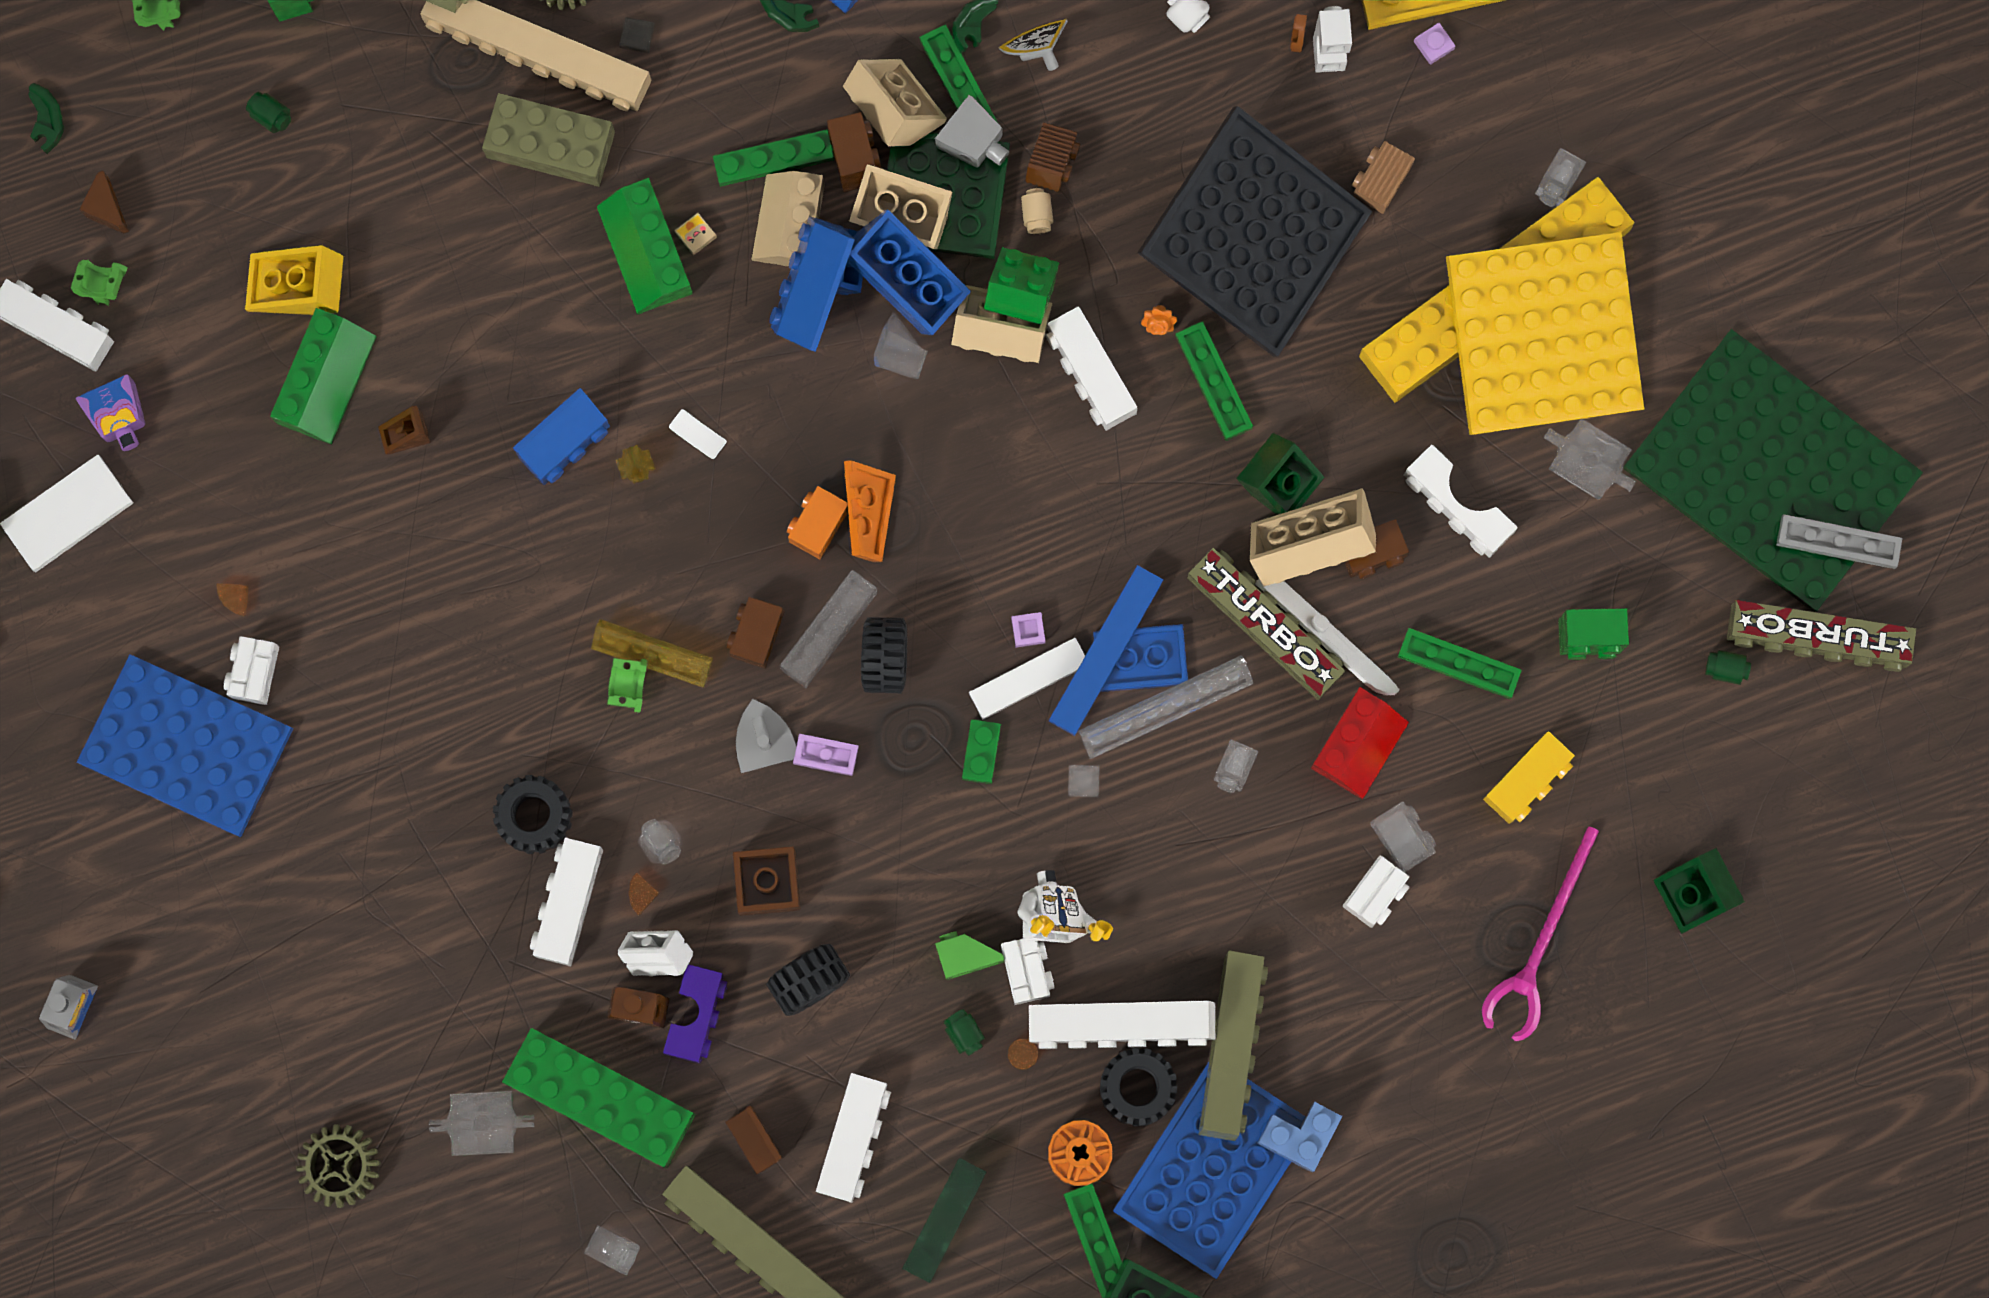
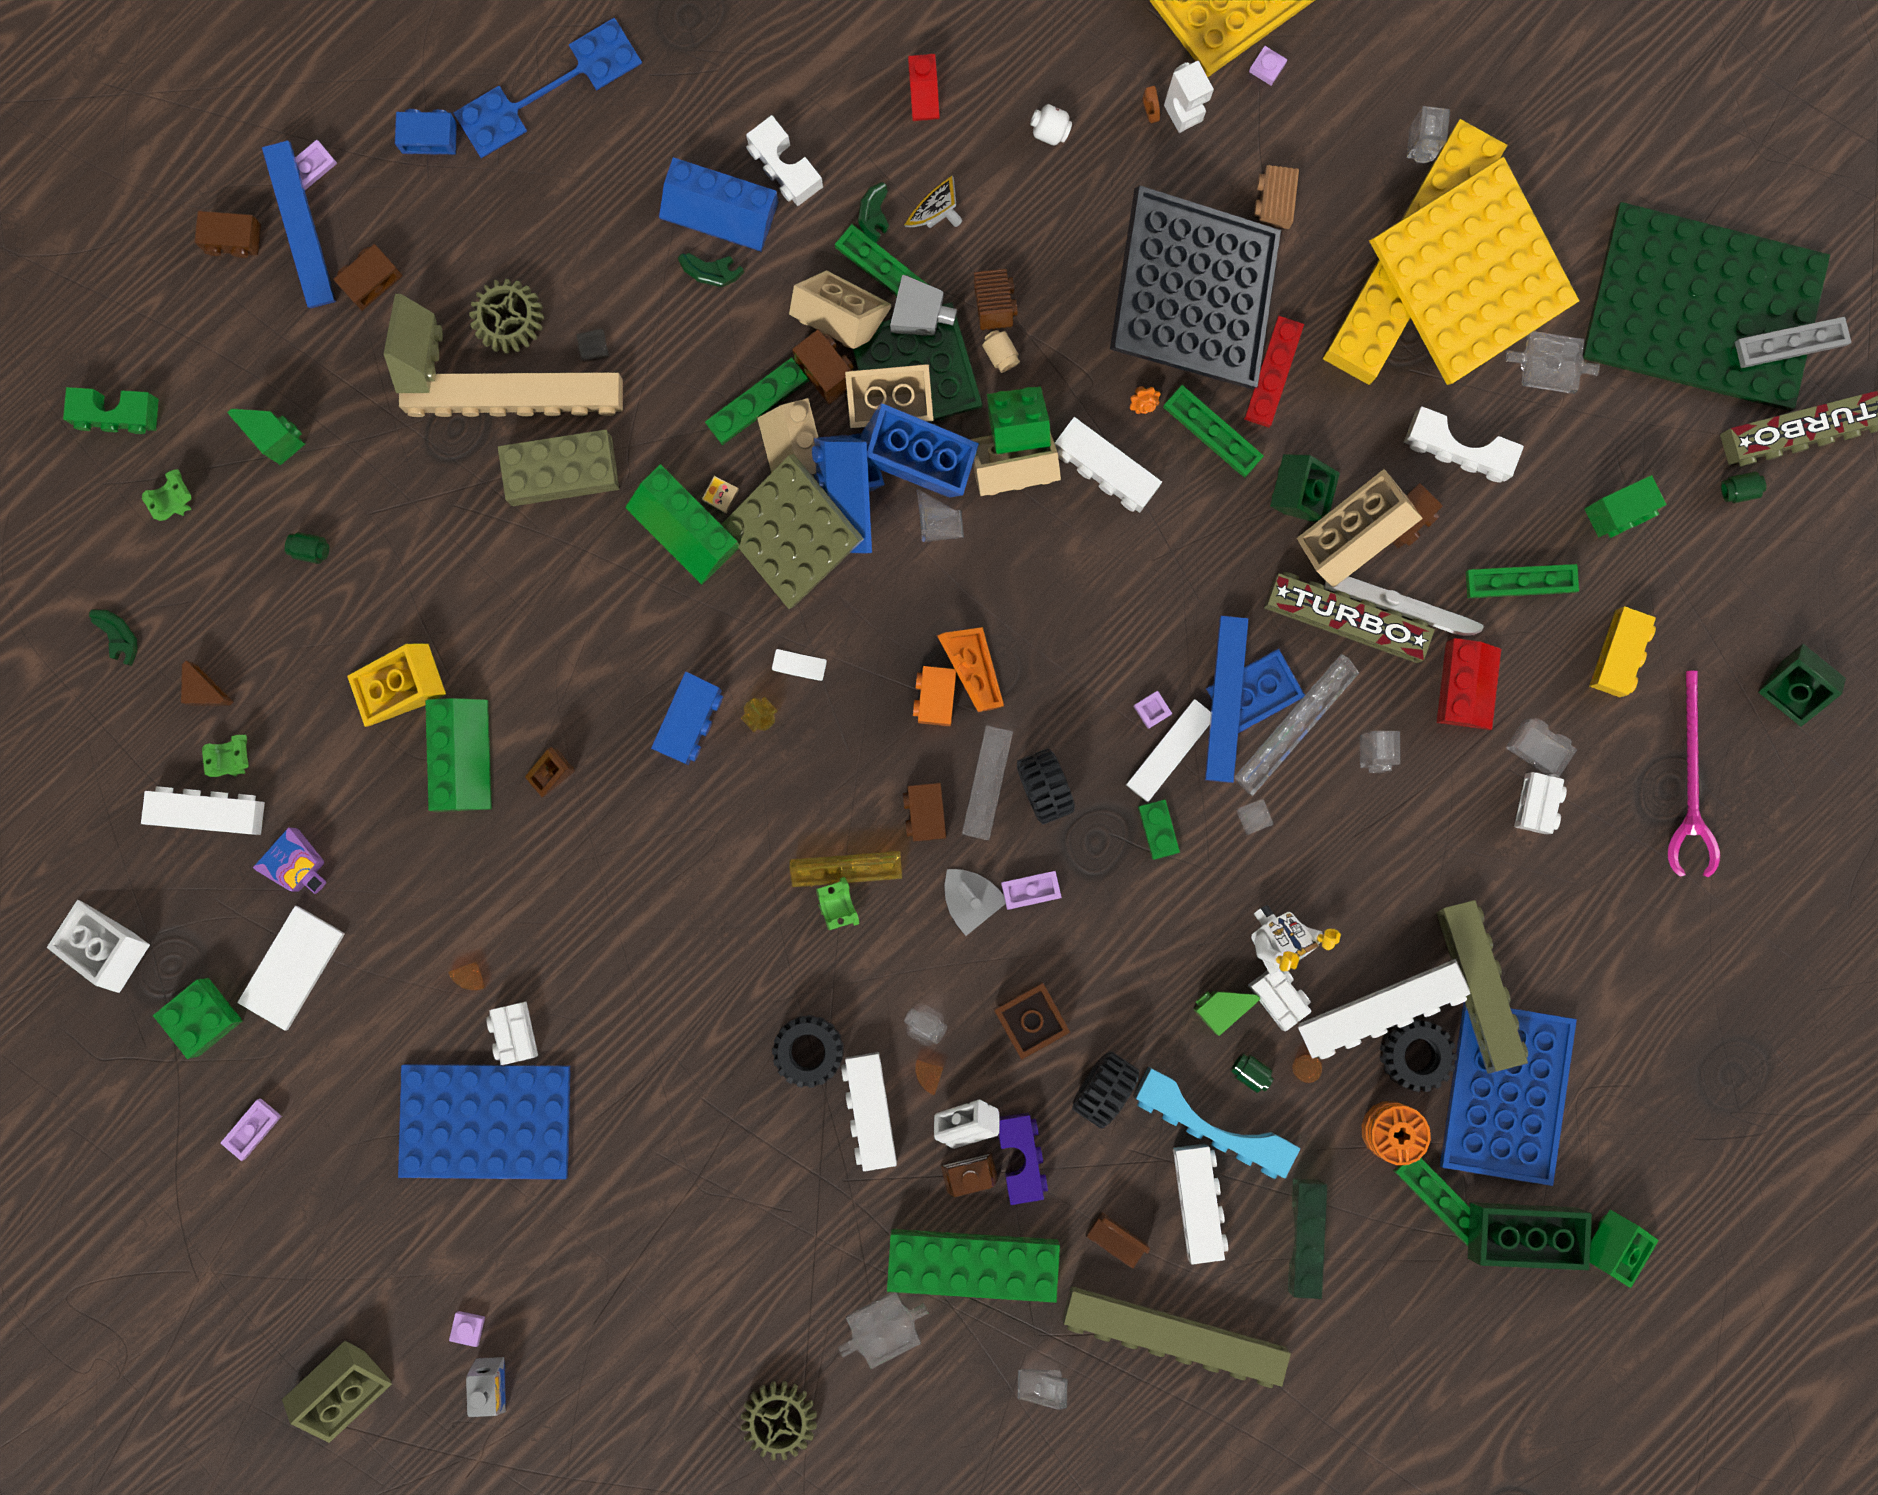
camera: 30 degrees left, 5 degrees up
(75, 940) = (467, 1328): none -> lavender plate
(747, 298) = (792, 531): none -> olive plate
(944, 1116) = (1265, 1149): none -> medium azure arch
(1303, 348) = (1274, 371): none -> red plate
(1303, 1144) = (1581, 1040): medium blue brick -> none

